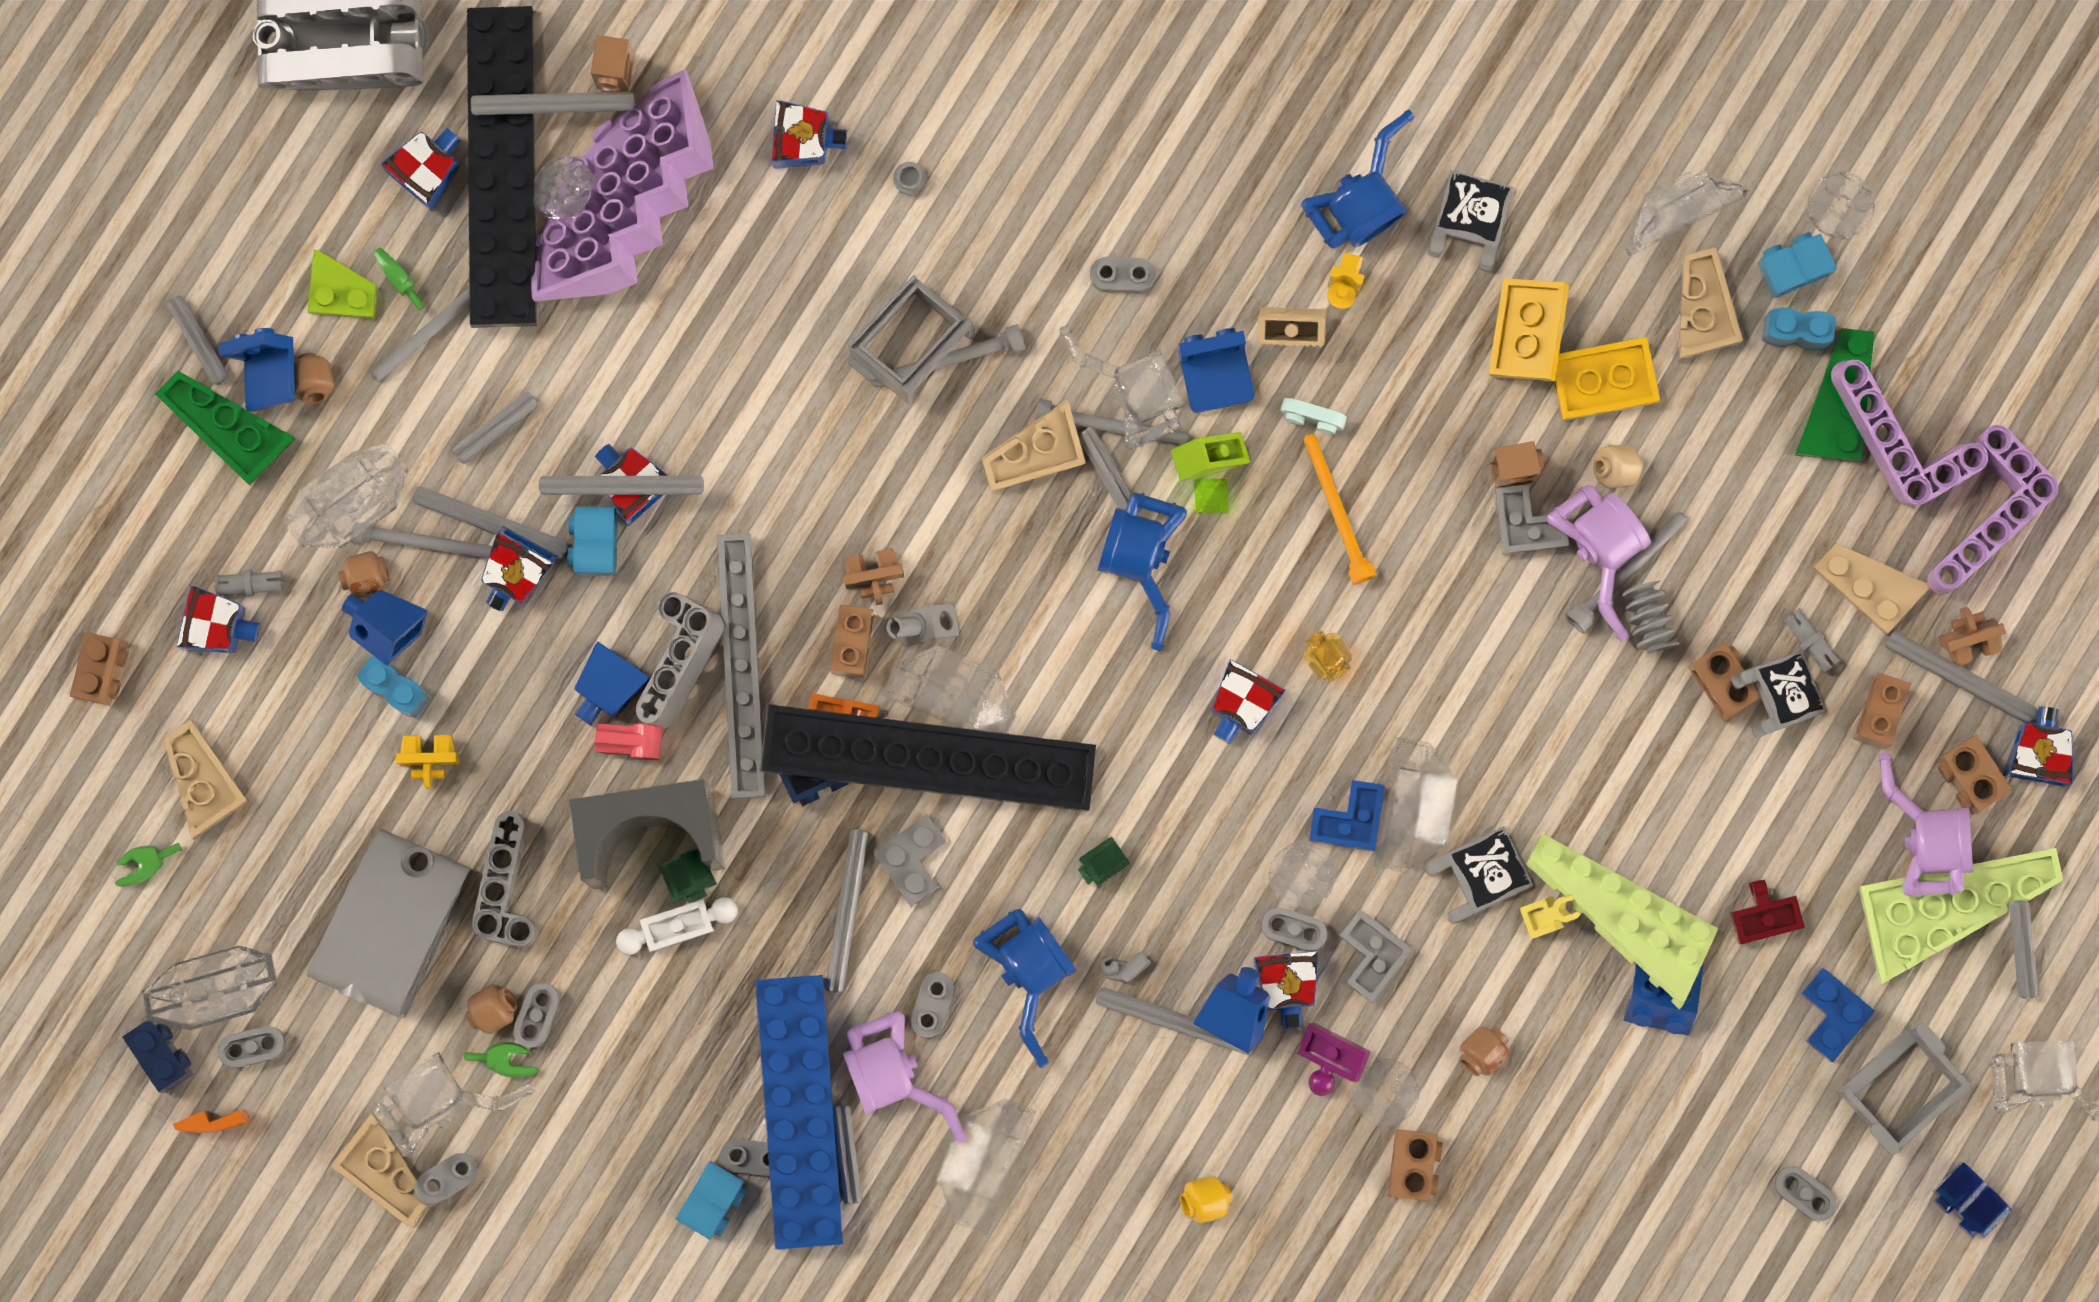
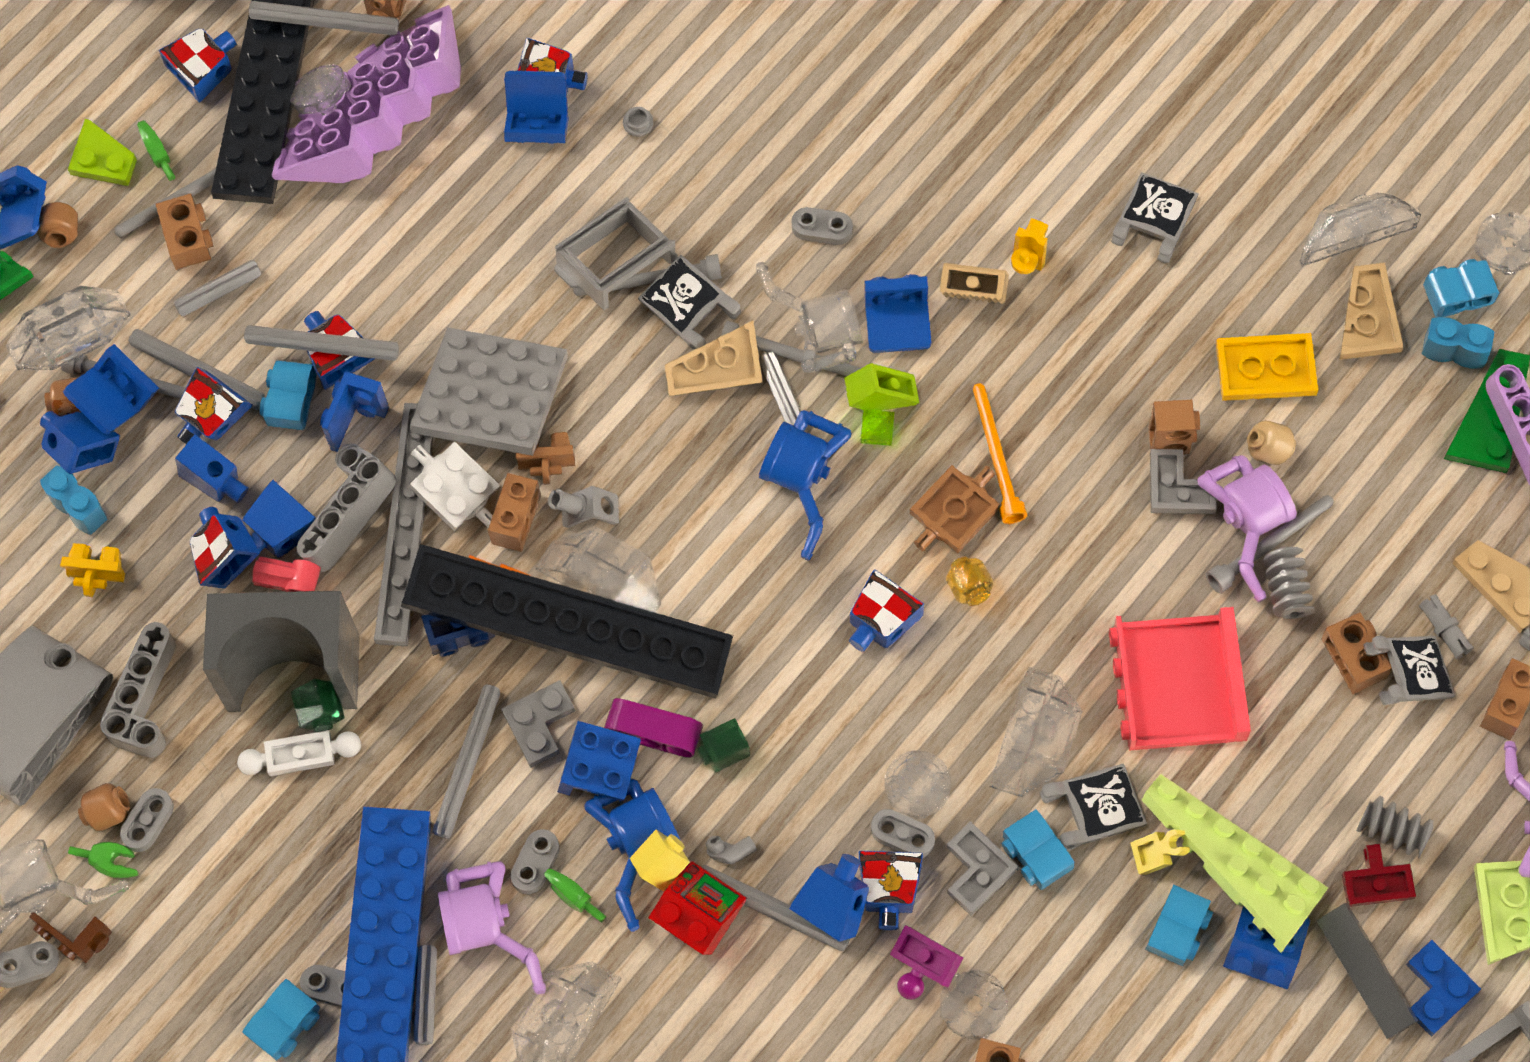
camera: 10 degrees right, 15 degrees down
(409, 565) = (111, 391): none -> blue bracket
(441, 372) = (180, 232): none -> medium nougat brick
(507, 1145) = (89, 941): none -> reddish brown bracket
(516, 636) = (199, 465): none -> blue torso
(558, 721) = (221, 548): none -> torso
(676, 537) = (348, 395): none -> blue bracket
(785, 621) = (454, 486): none -> white plate
(800, 183) = (536, 107): none -> blue bracket
(804, 512) = (489, 391): none -> light grey plate
(976, 1035) = (572, 894): none -> bright green hand
(981, 898) = (599, 761): none -> blue bracket
(991, 379) = (684, 298): none -> flag
(1029, 852) = (655, 727): none -> magenta beam
(1059, 994) = (660, 859): none -> light yellow brick
(1103, 1035) = (698, 908): none -> red slope
(1302, 577) = (954, 508): none -> medium nougat plate
(1325, 419) = (993, 368): light aqua plate -> none
(1355, 827) = (973, 745): blue plate -> none
(1361, 204) = (1054, 187): blue piece -> none
(1429, 929) = (1037, 849): none -> dark azure brick
(1484, 1051) = (1078, 975): medium nougat head -> none
(1529, 329) = (1198, 313): yellow plate -> none
(1550, 732) = (1180, 681): none -> coral panel
(1576, 987) = (1178, 926): none -> dark azure brick
(1763, 1007) = (1367, 971): none -> dark grey tile
(1779, 858) = (1396, 826): none -> light grey piece

